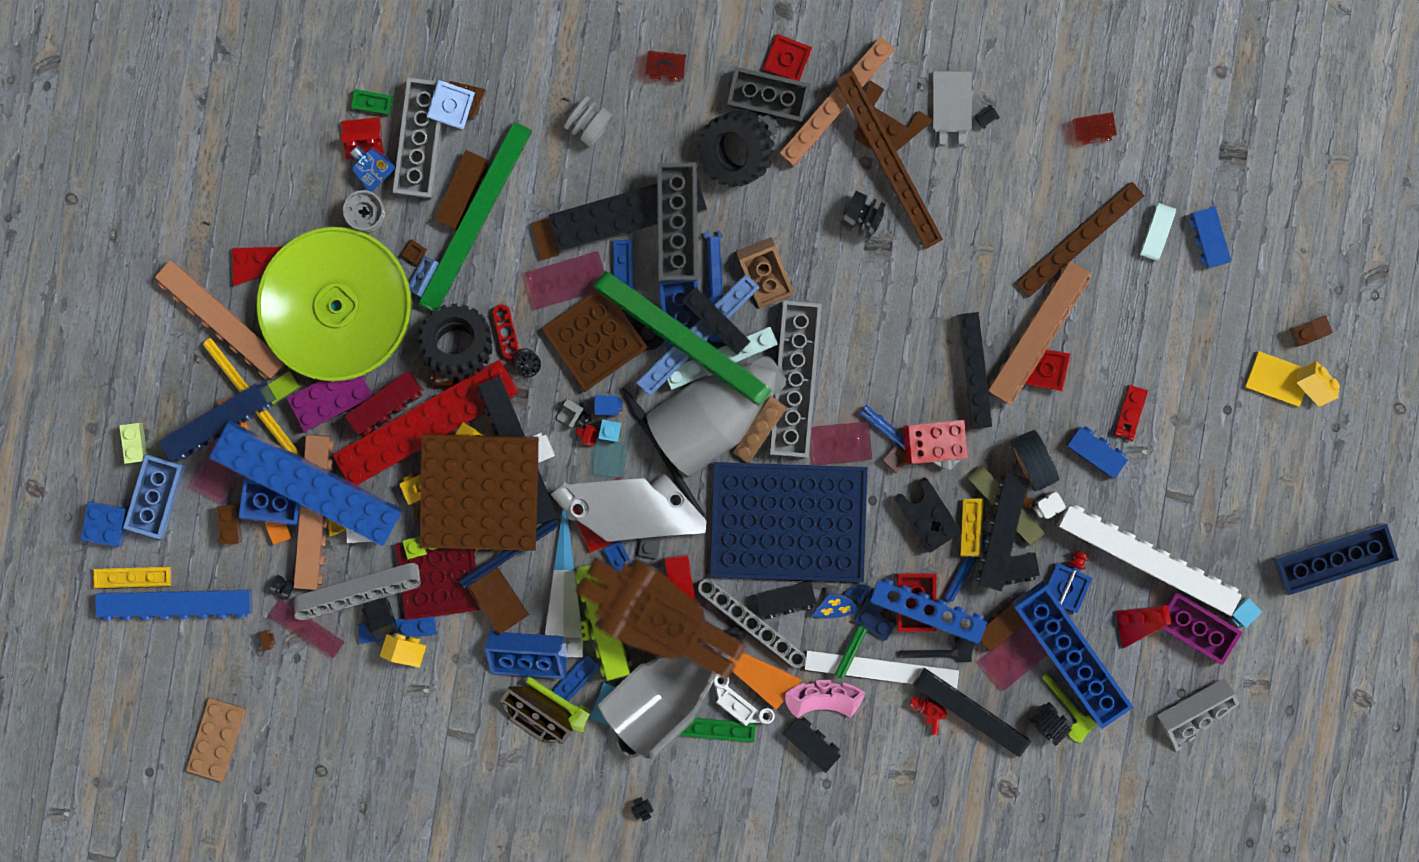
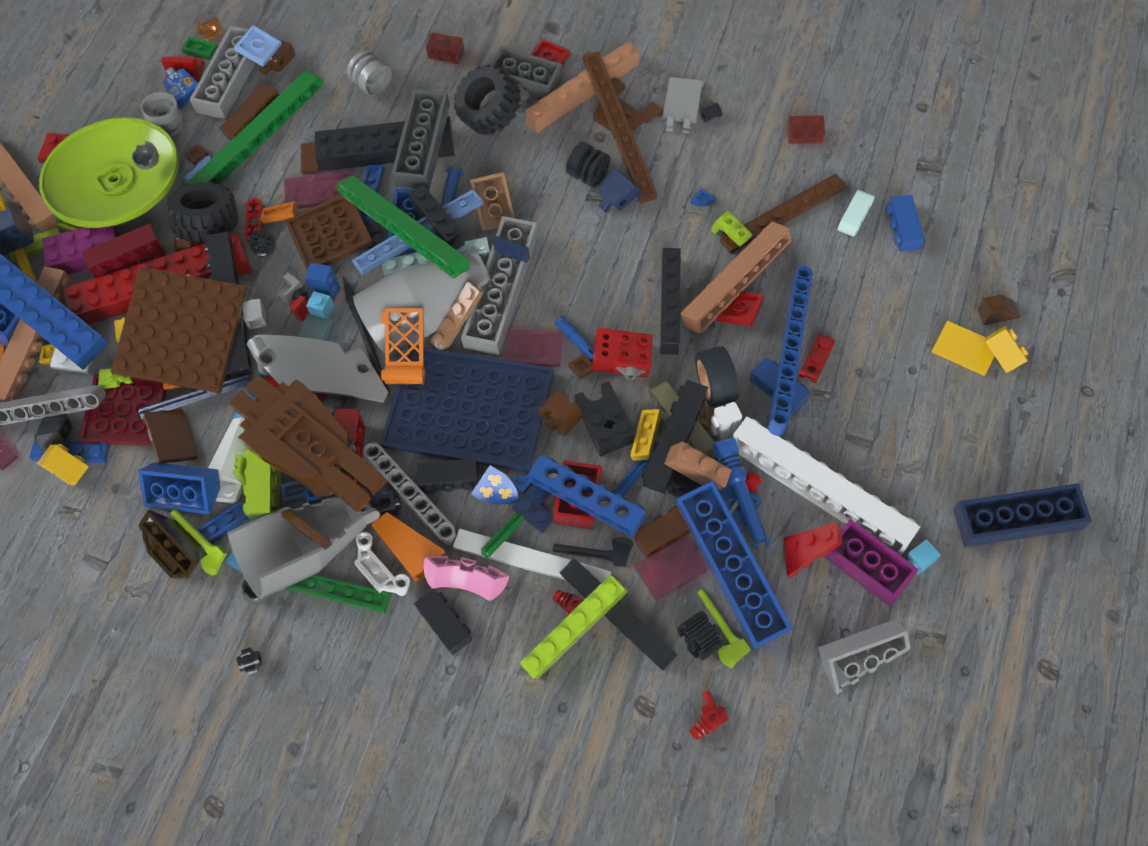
camera: 15 degrees right, 25 degrees down
(376, 73) = (209, 29): none -> clear orange bracket
(376, 289) = (145, 156): none -> dark grey hair
(532, 319) = (278, 212): none -> orange tile
(669, 687) = (304, 528): none -> reddish brown tile
(716, 499) = (399, 371): none -> orange piece
(803, 346) = (511, 249): none -> dark blue tile
(884, 520) = (560, 413): none -> reddish brown brick
(899, 243) = (617, 191): none -> dark blue torso
(936, 735) = (573, 627): none -> lime brick
(991, 232) = (703, 198): none -> blue tile
(1028, 274) = (732, 228): none -> lime bracket
(1029, 567) = (697, 465): none -> nougat brick
(1065, 562) = (727, 453): none -> blue piece
(1069, 791) = (711, 718): none -> red piece
(1101, 425) = (790, 351): none -> blue beam

